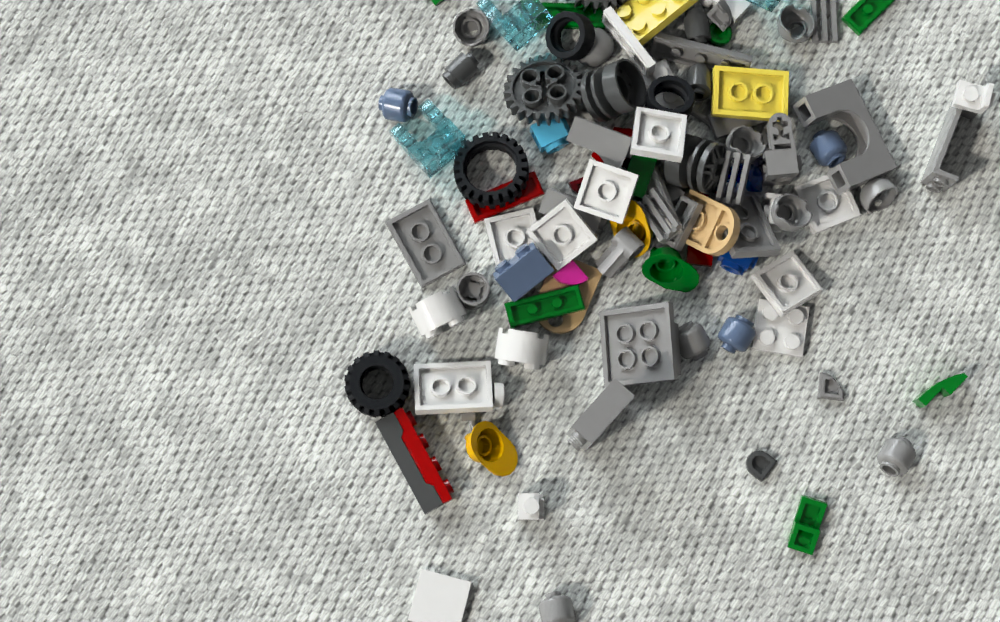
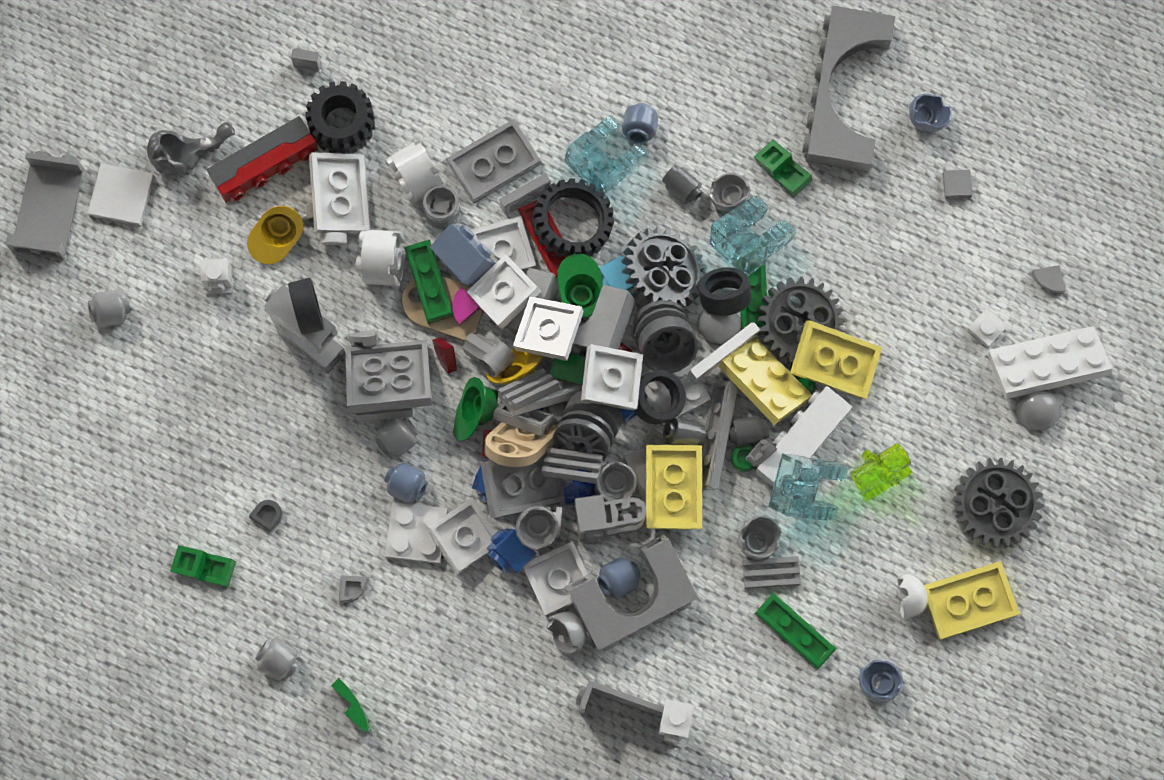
camera: 90 degrees right, 5 degrees down
(313, 416) = (306, 59): none -> light grey tile
(403, 544) = (178, 154): none -> dark grey hair
(462, 213) = (524, 194): none -> light grey tile
(558, 164) = (580, 282): none -> green piece
(595, 368) = (368, 338): none -> light grey tile
(603, 399) = (306, 306): none -> black tyre
(613, 294) = (445, 354): none -> dark red tile
(804, 243) = (508, 552): none -> blue brick

